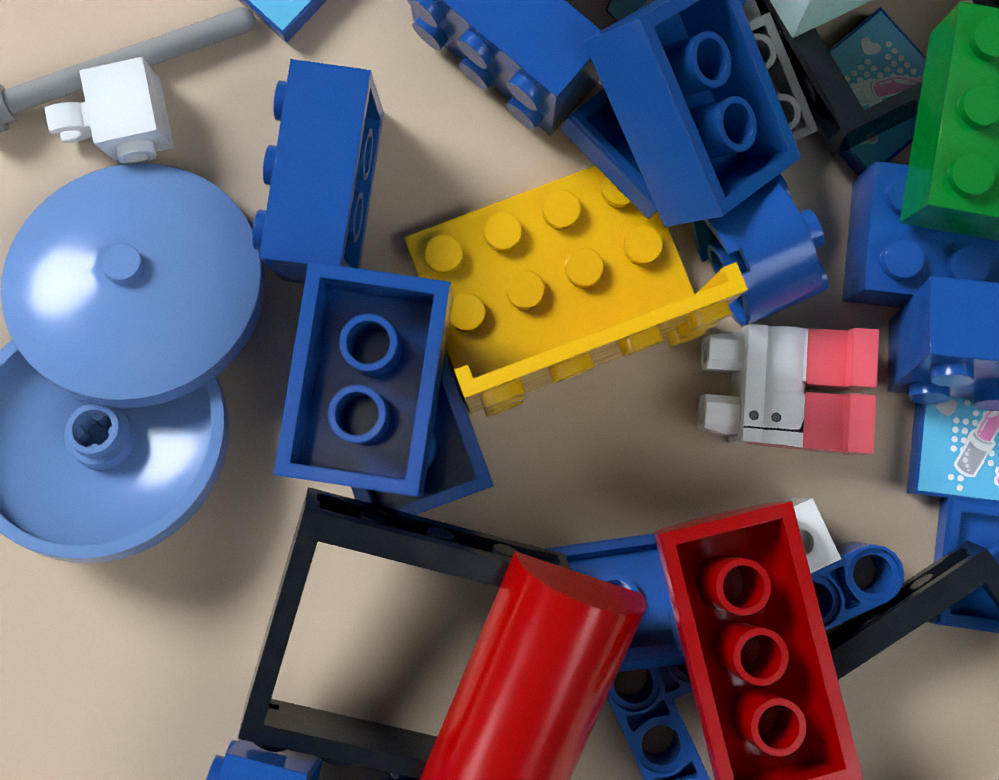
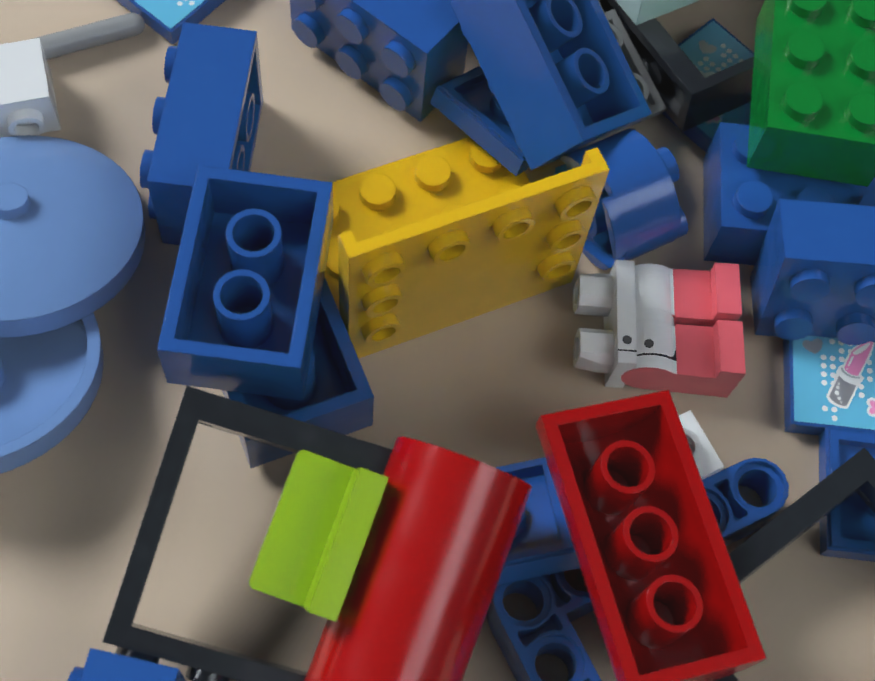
camera: 10 degrees left, 20 degrees down
(439, 649) = (317, 533): none -> lime panel

